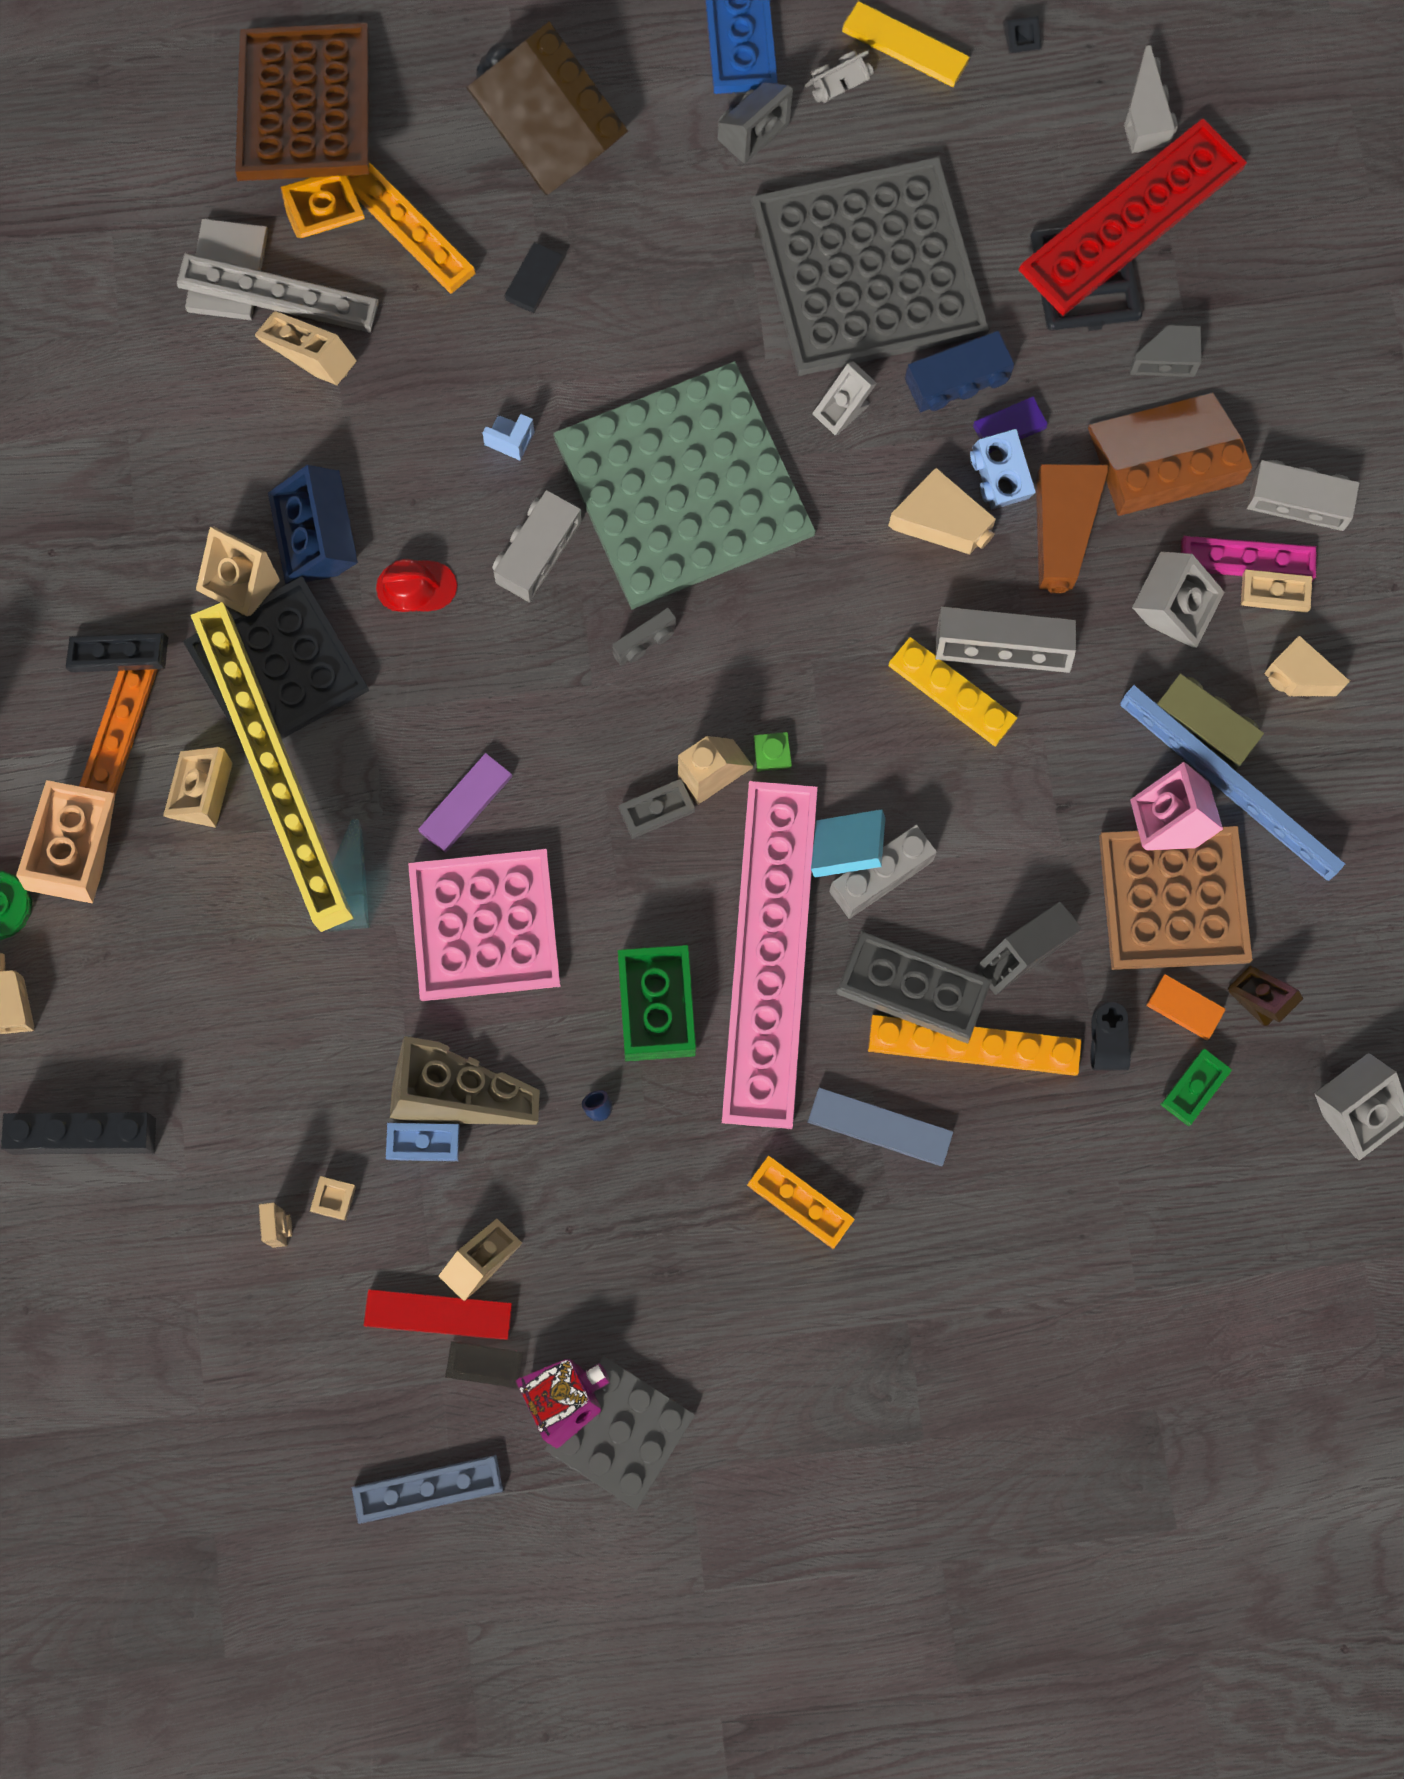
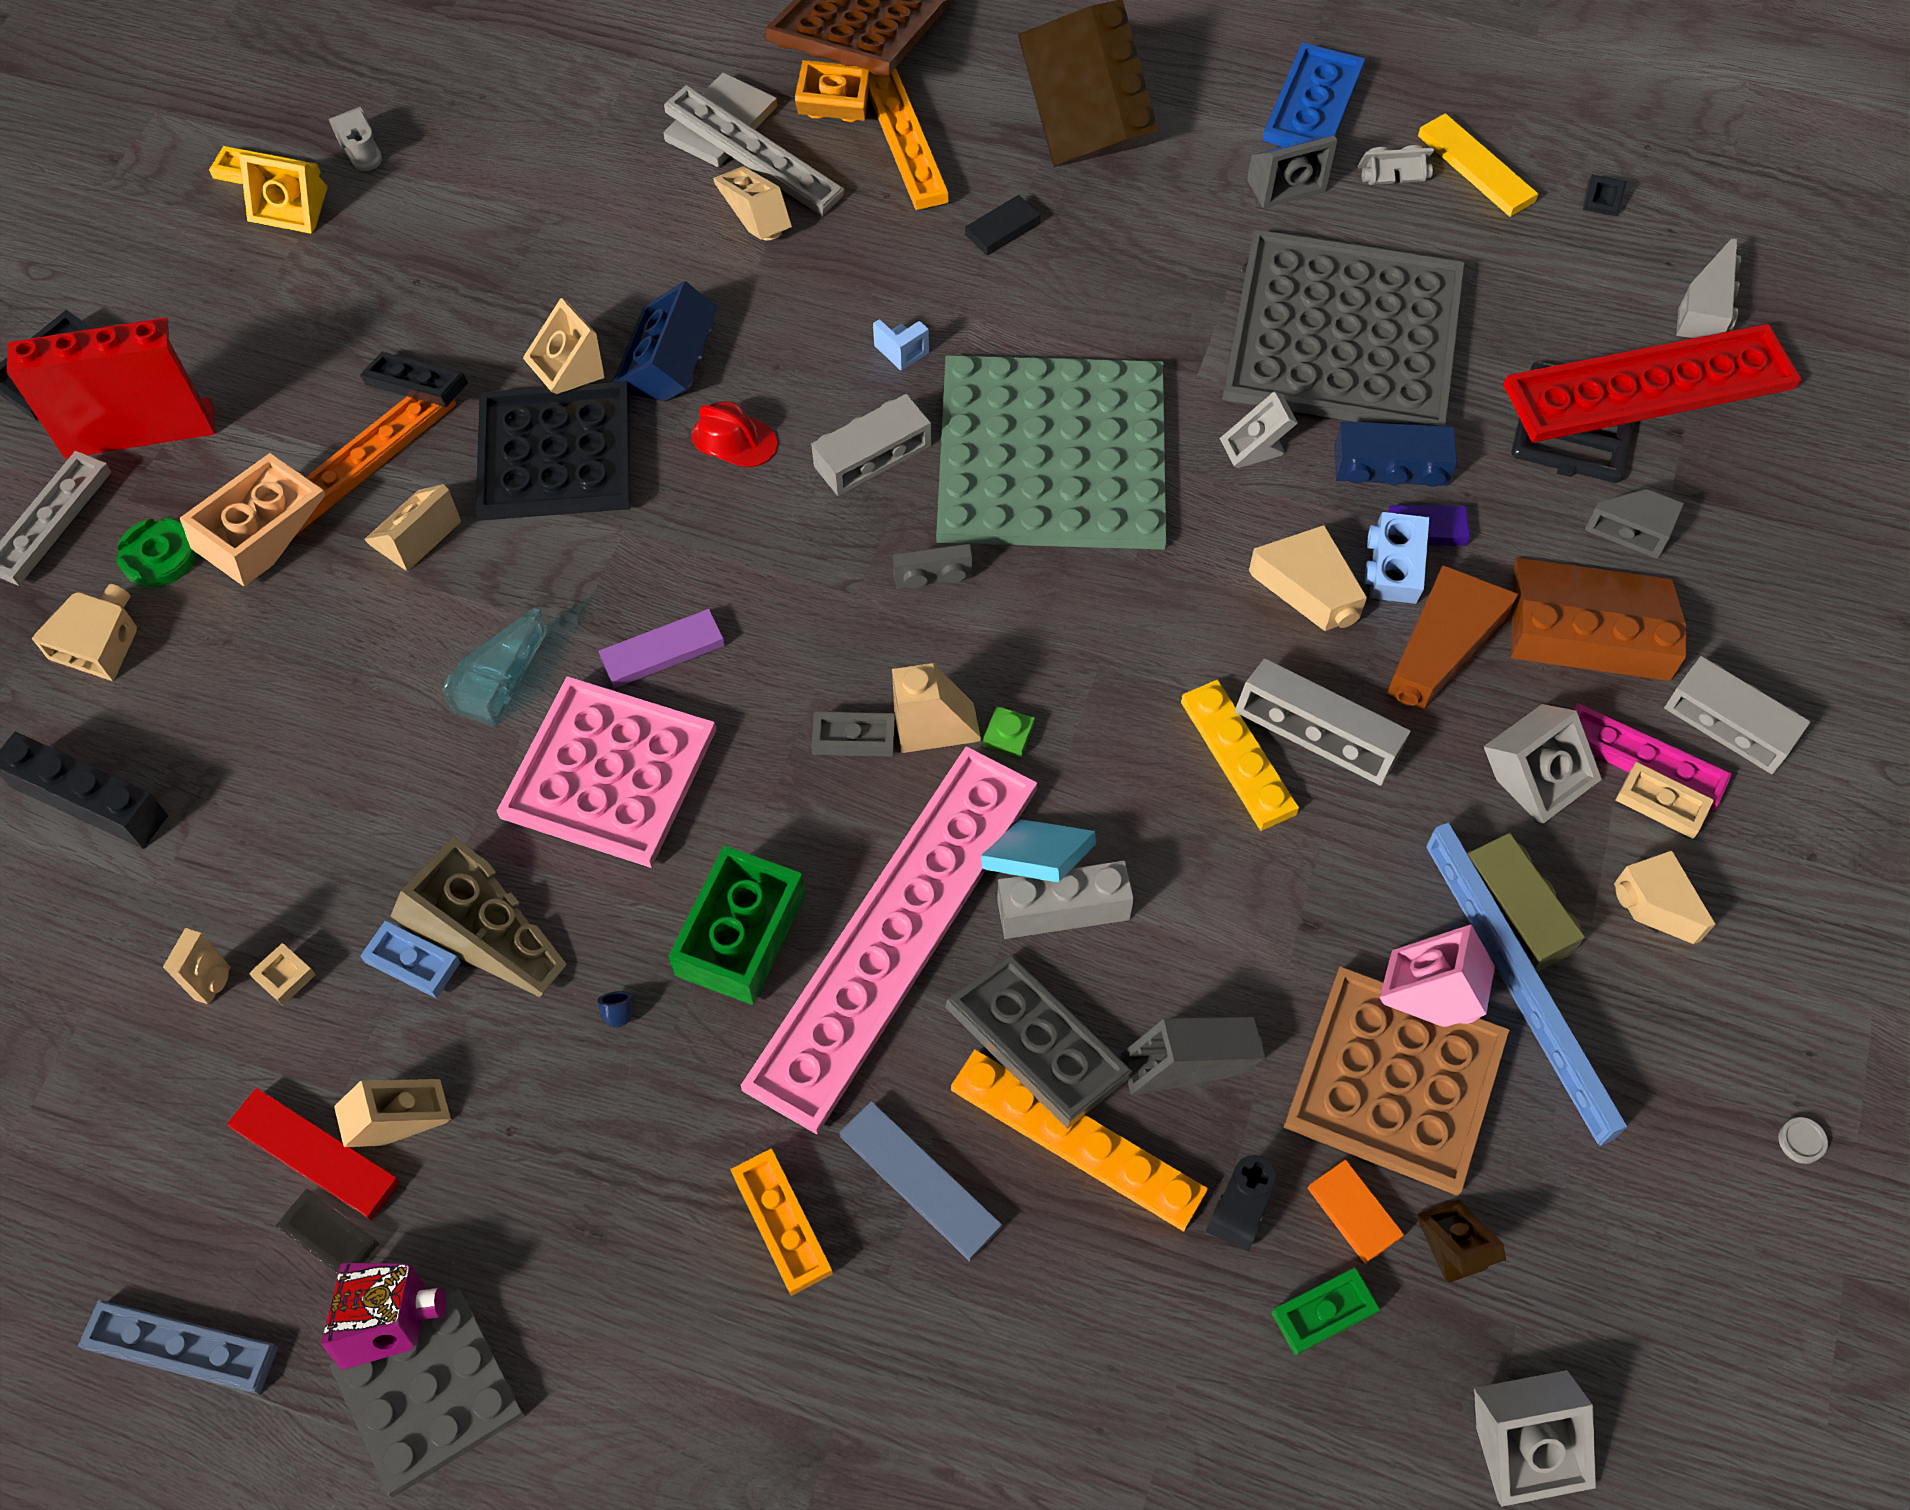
camera: 30 degrees right, 15 degrees down
(272, 768) = (479, 530): light yellow brick -> none

